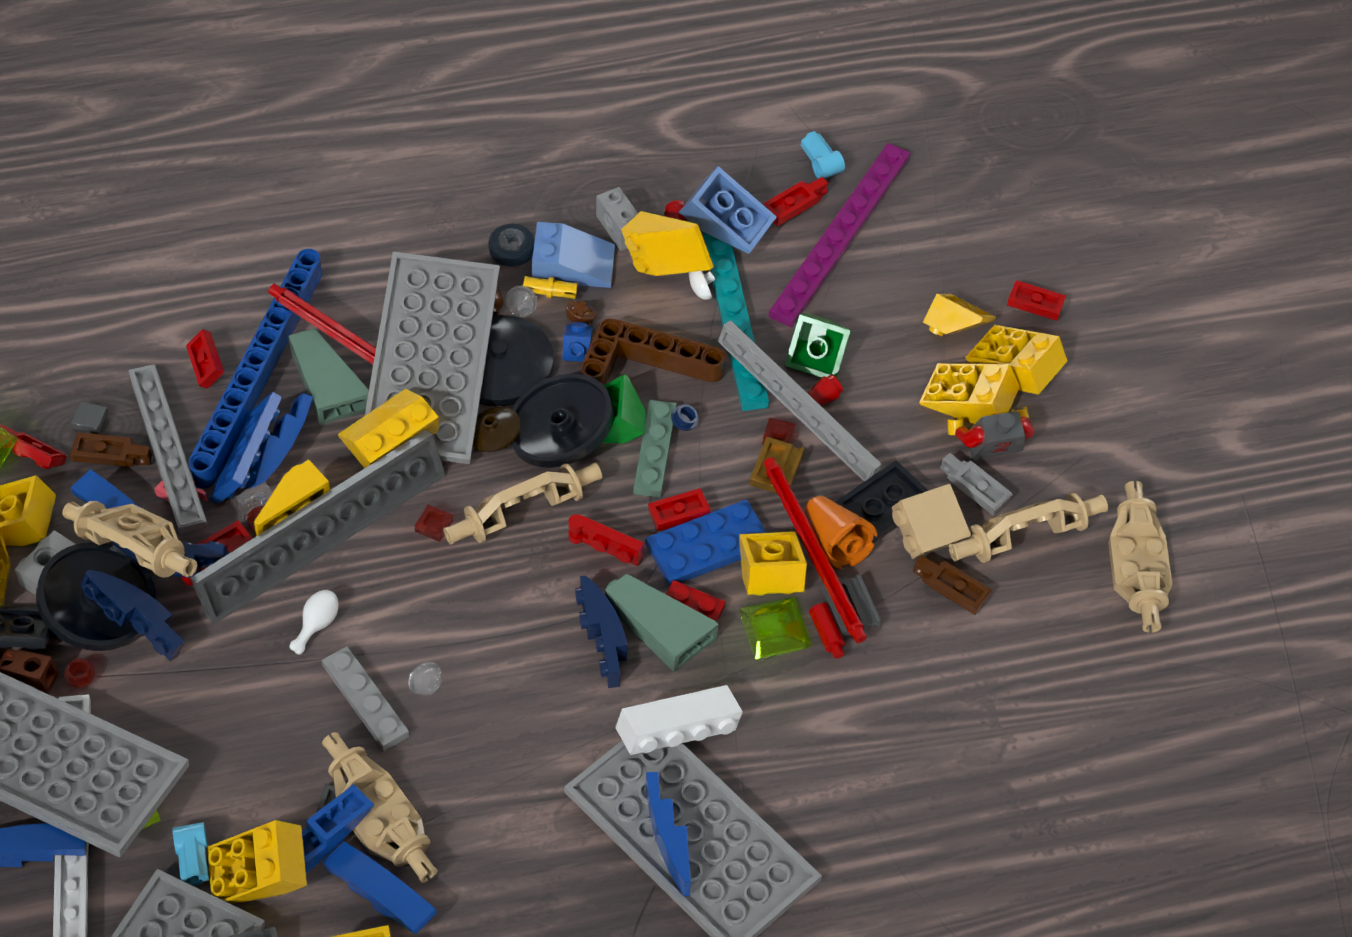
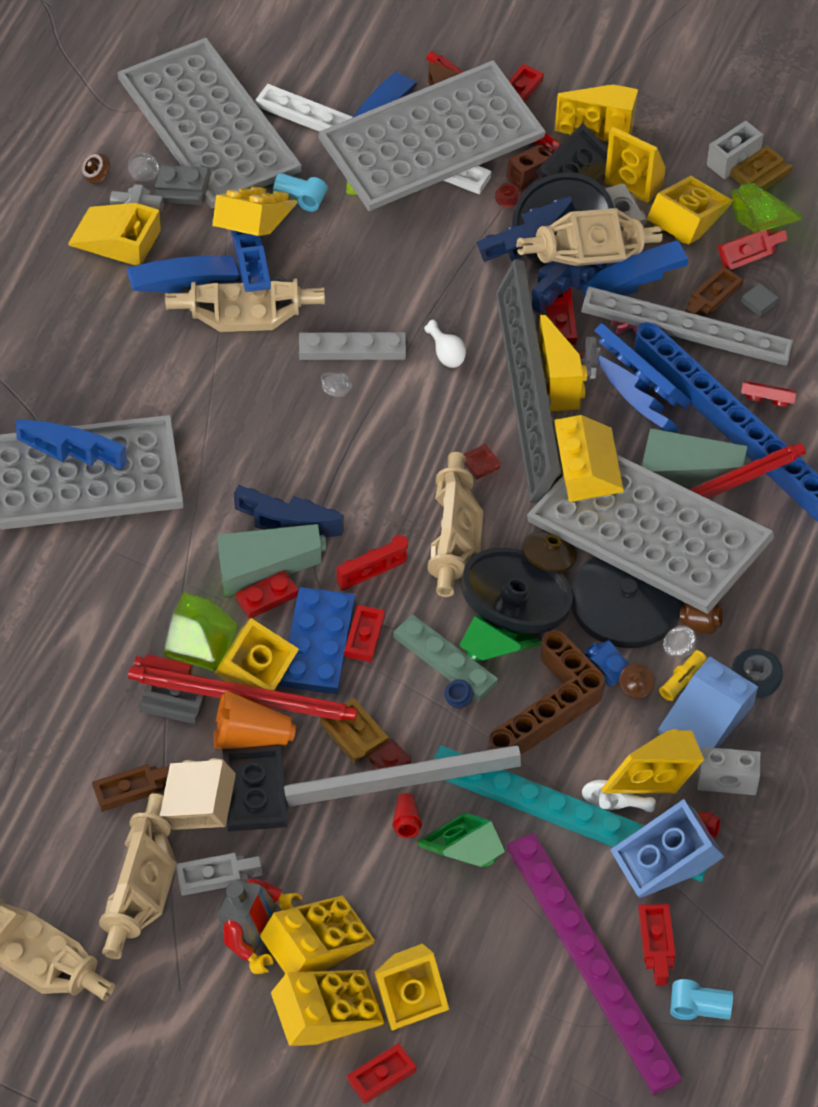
camera: 125 degrees right, 0 degrees up
(678, 720) = (158, 505): white brick -> none

